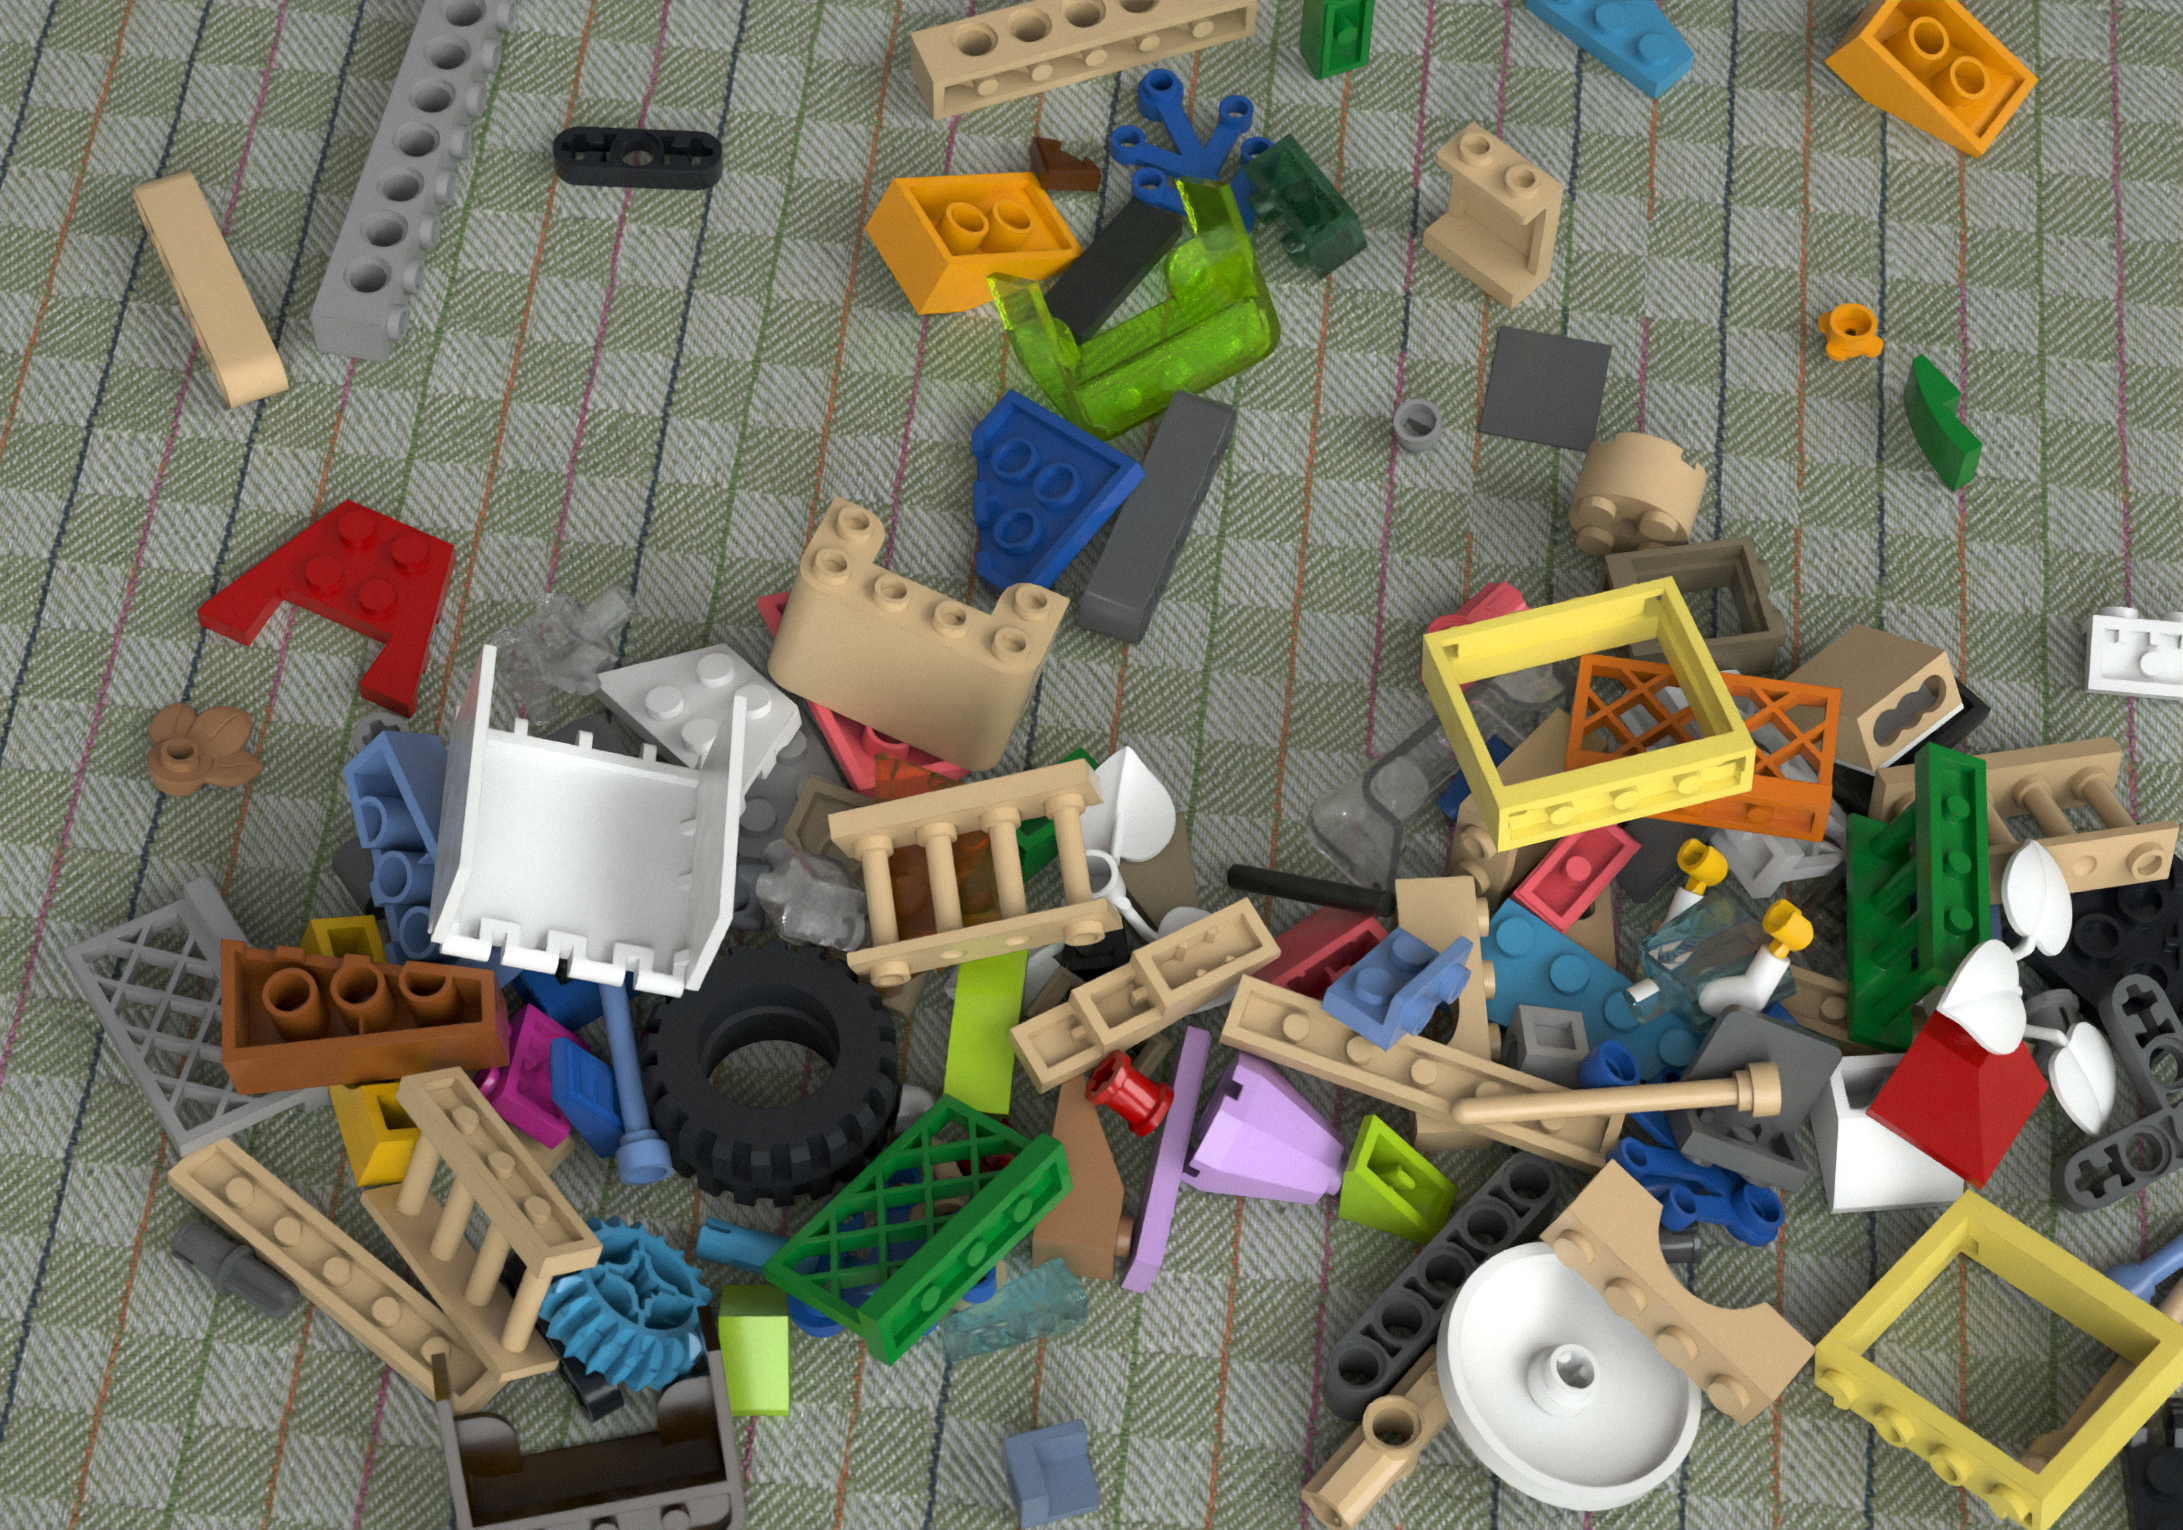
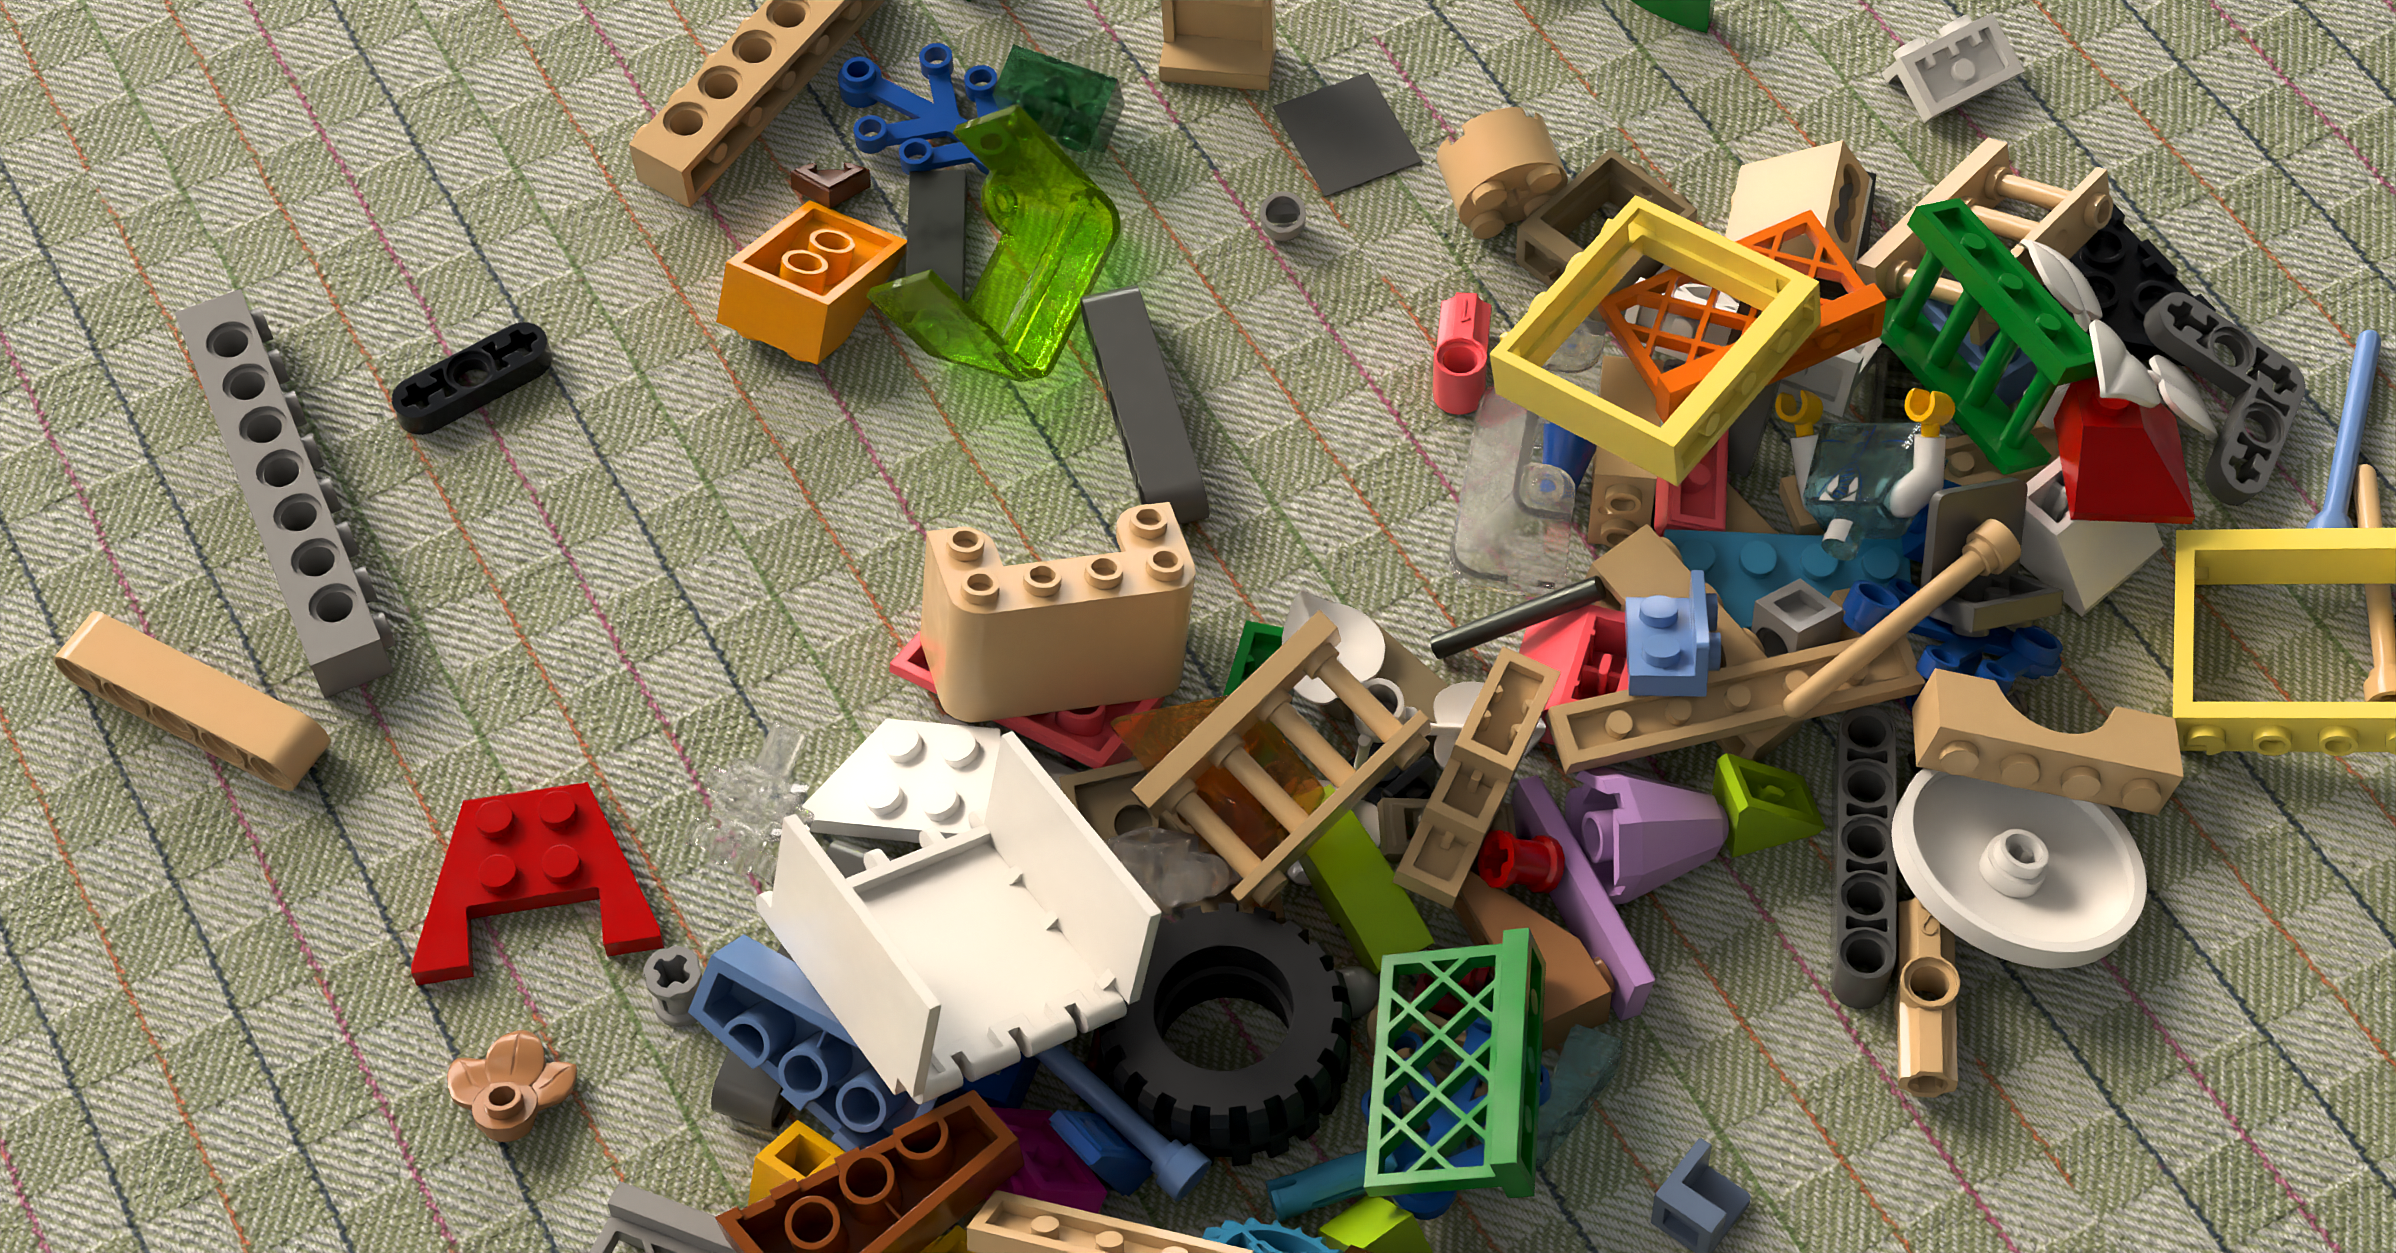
camera: 30 degrees left, 0 degrees up
(1040, 492) = (1039, 445): blue plate -> none

